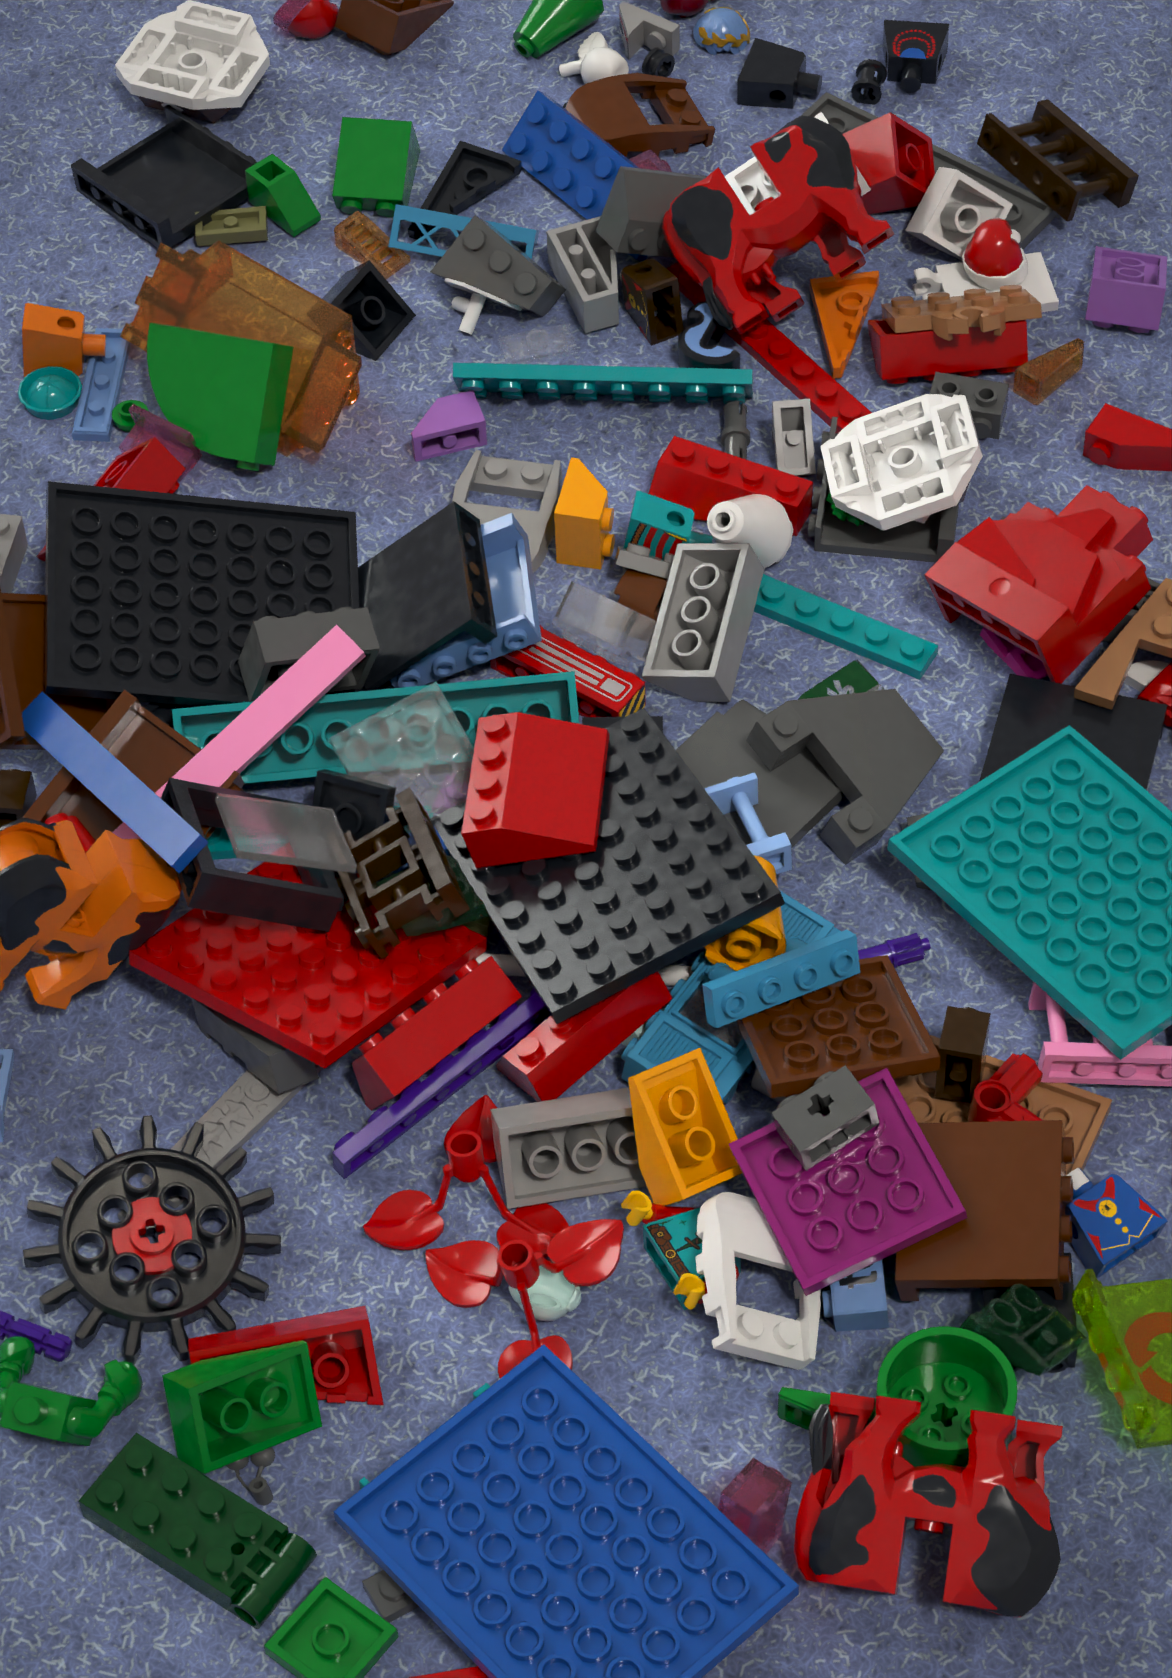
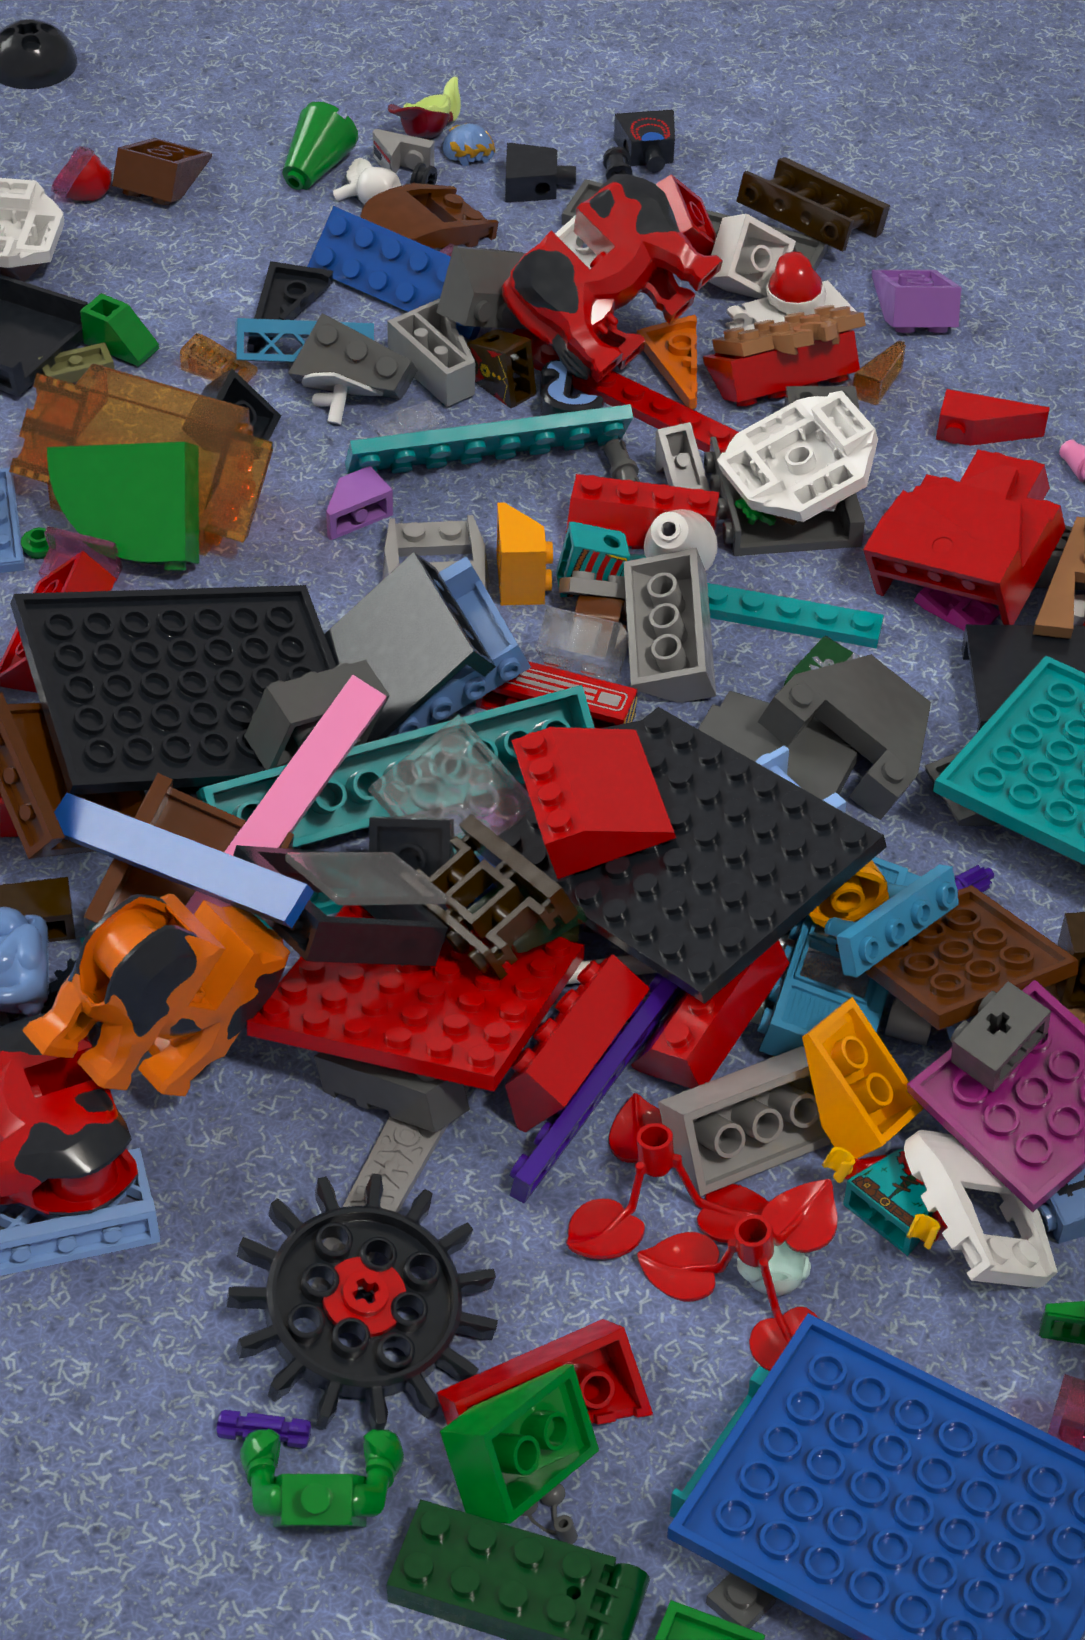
camera: 20 degrees left, 5 degrees down
(375, 165) = (198, 292): green slope -> none

